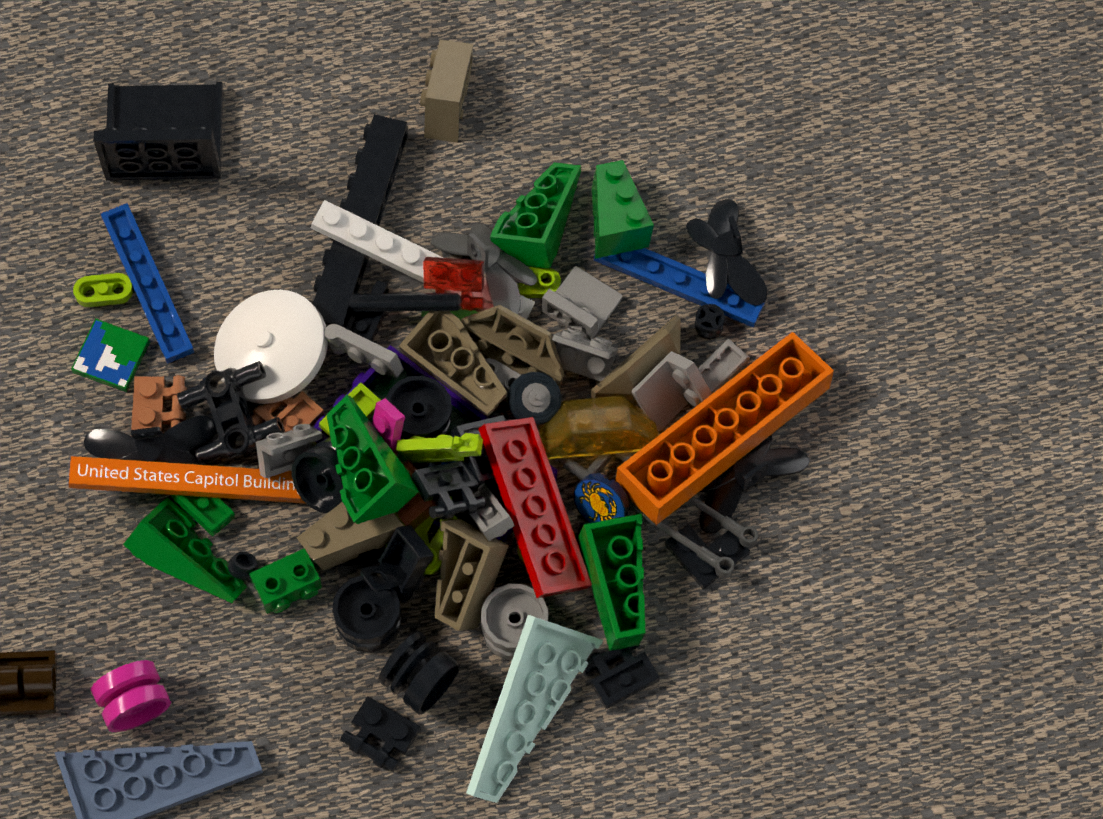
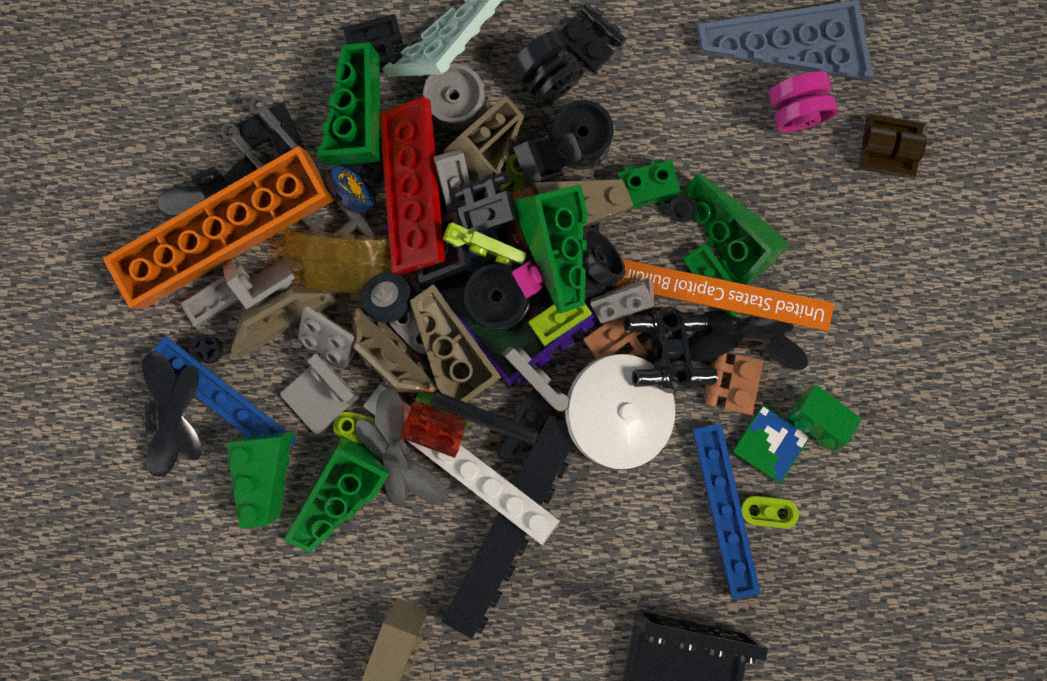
camera: 165 degrees left, 15 degrees up
(60, 384) = (824, 418): none -> green brick

